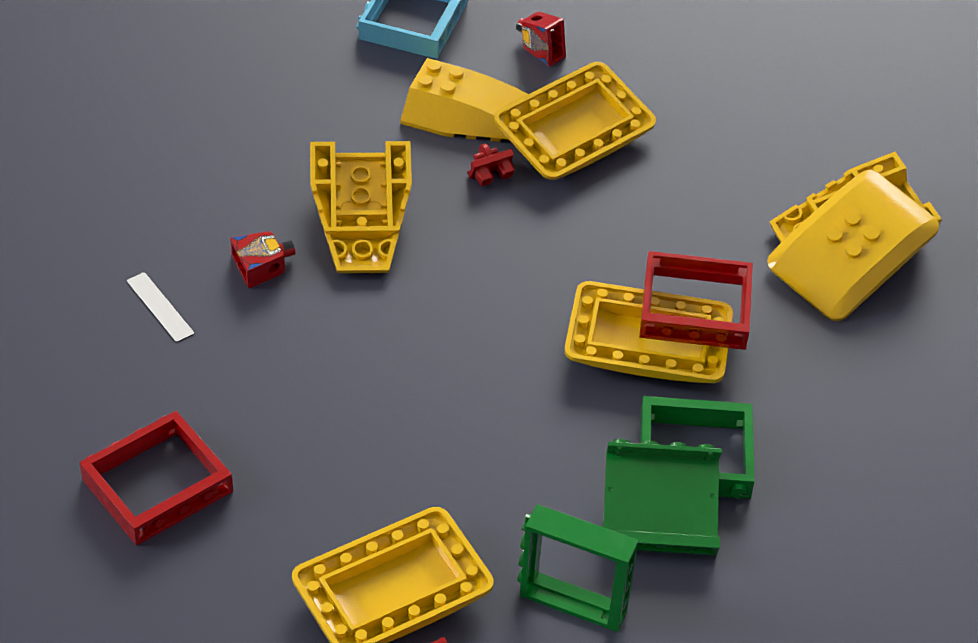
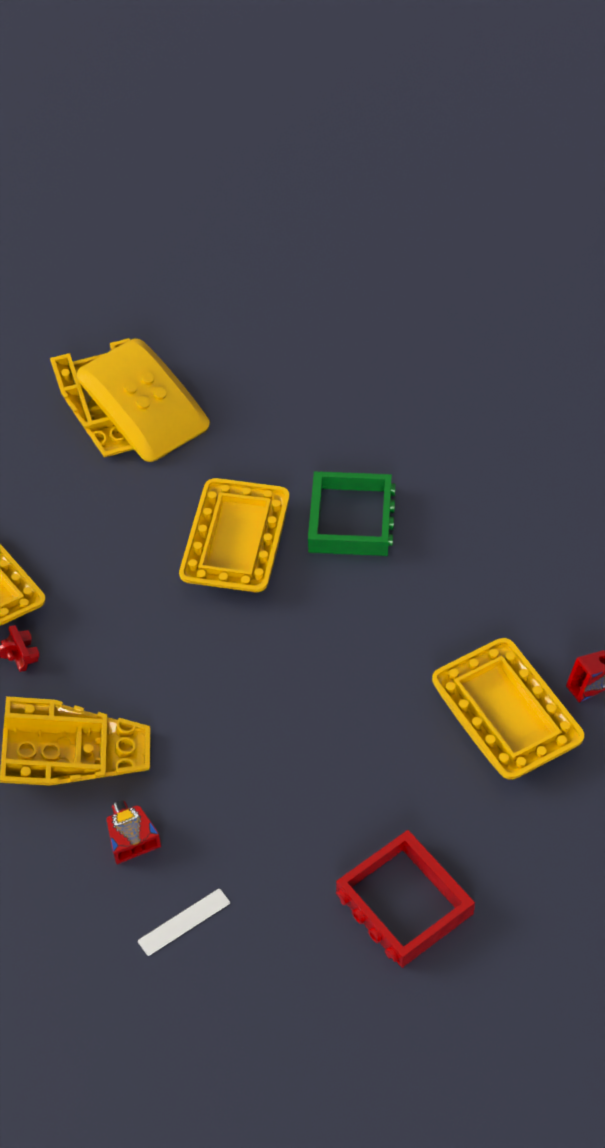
camera: 85 degrees left, 5 degrees up
(566, 596) = (507, 565): green window -> none
(663, 495) = (413, 533): green panel -> none
(697, 330) = (216, 465): red window -> none

